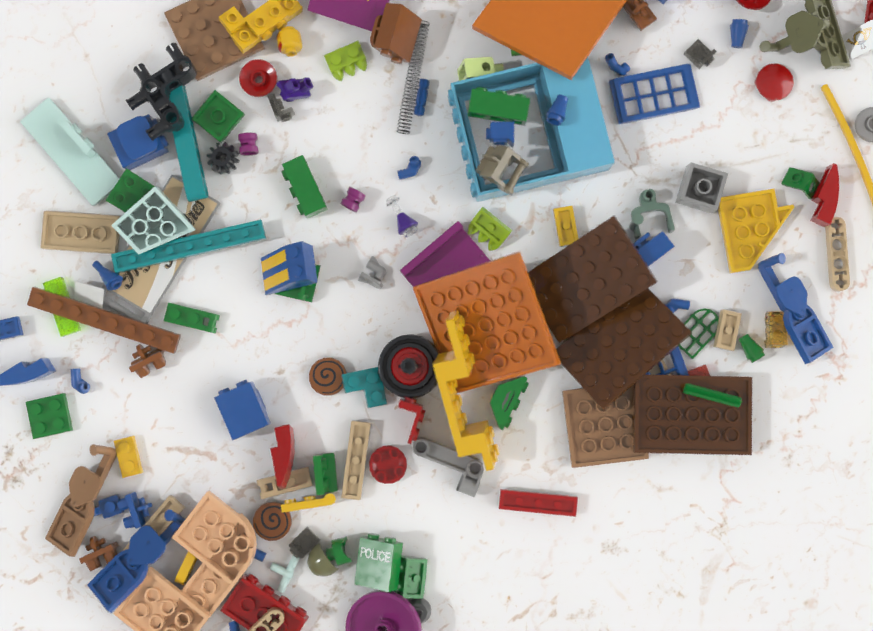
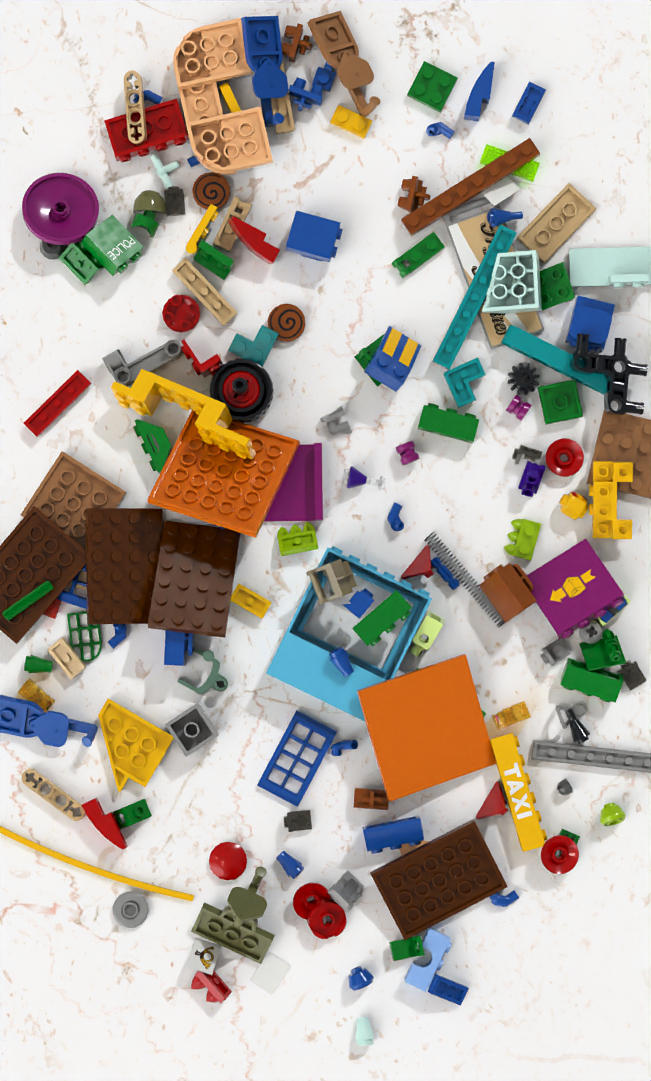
camera: 125 degrees right, 0 degrees up
(262, 207) = (459, 379): none -> teal plate
(431, 119) = (420, 565): none -> red piece

